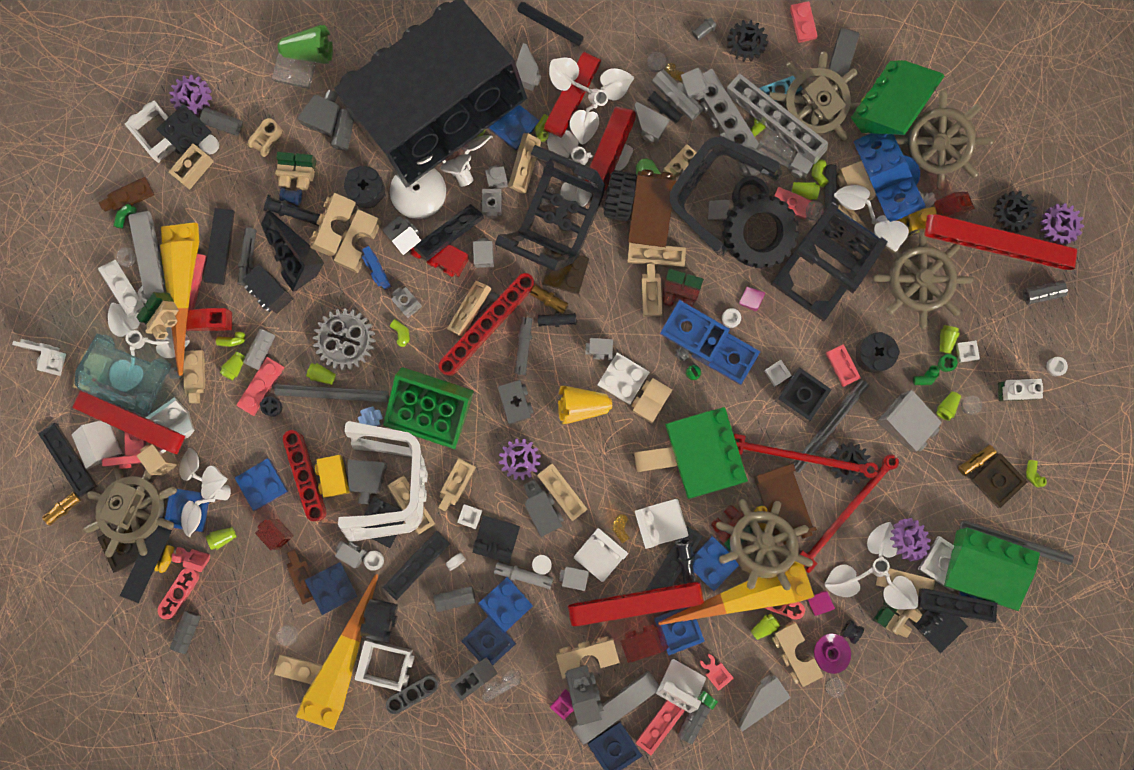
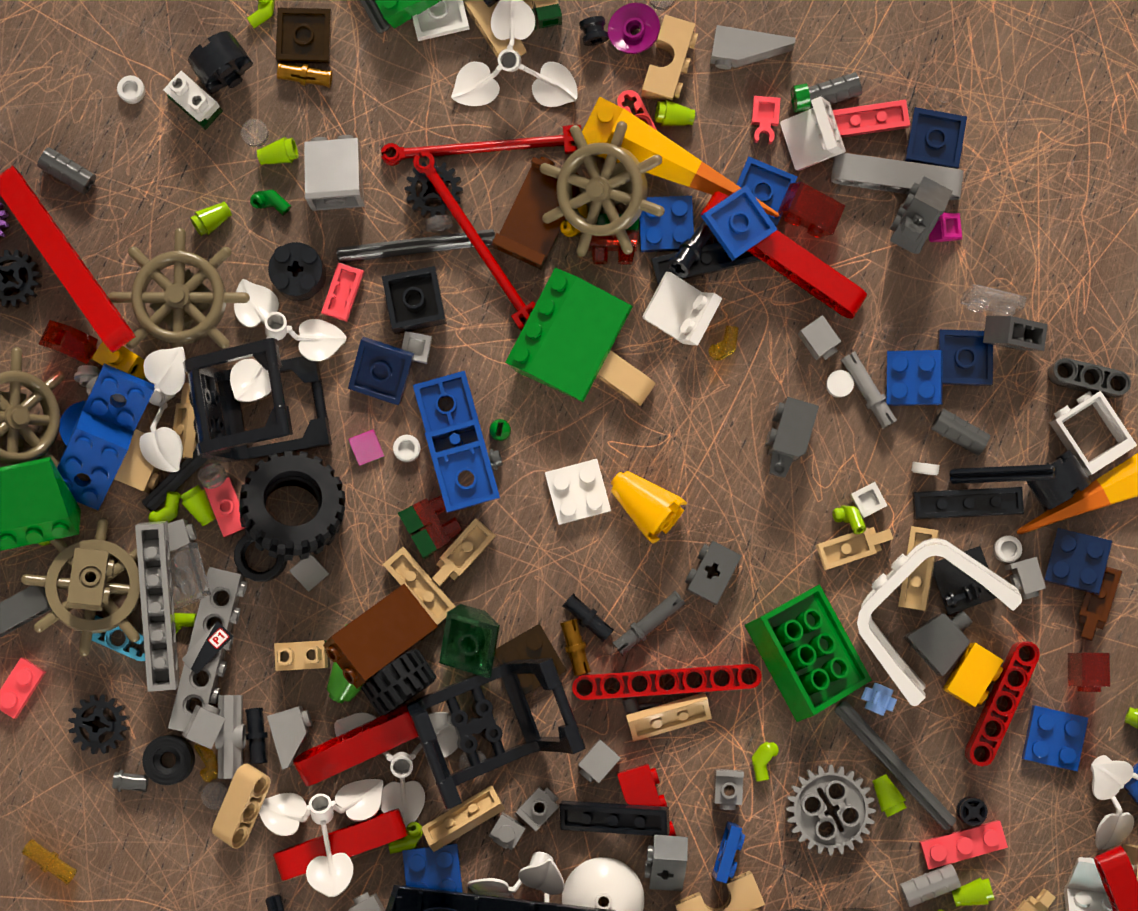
camera: 140 degrees left, 0 degrees up
(411, 595) = (1003, 474): none -> black axle
(472, 499) = (850, 515): none -> lime arm
(496, 539) = (862, 452): black hinge -> none
(512, 470) = (761, 497): medium lavender gear -> none
(562, 492) = (751, 435): tan plate -> none
(600, 348) = (573, 544): light grey brick -> none
(600, 555) = (771, 337): white bracket -> none
(603, 650) = (858, 243): tan arch -> none
(605, 250) = (469, 640): none -> clear green slope
(639, 66) = (241, 806): none -> tan beam
(652, 400) = (571, 440): tan brick -> none
(675, 595) = (739, 222): none -> blue plate
(696, 45) = (184, 759): none -> black tyre
(698, 167) = (354, 547): black windscreen -> none
(731, 123) = (207, 647): none -> sticker
(783, 343) = (381, 371): none -> dark blue plate
(821, 603) = (596, 85): dark pink slope -> none
(832, 329) = (317, 340): none -> white plant
(910, 539) = (449, 61): medium lavender gear -> none
(953, 364) = (230, 189): green bush -> none
(967, 351) = (204, 187): white plate -> none
(1027, 422) = (220, 62): none -> black brick

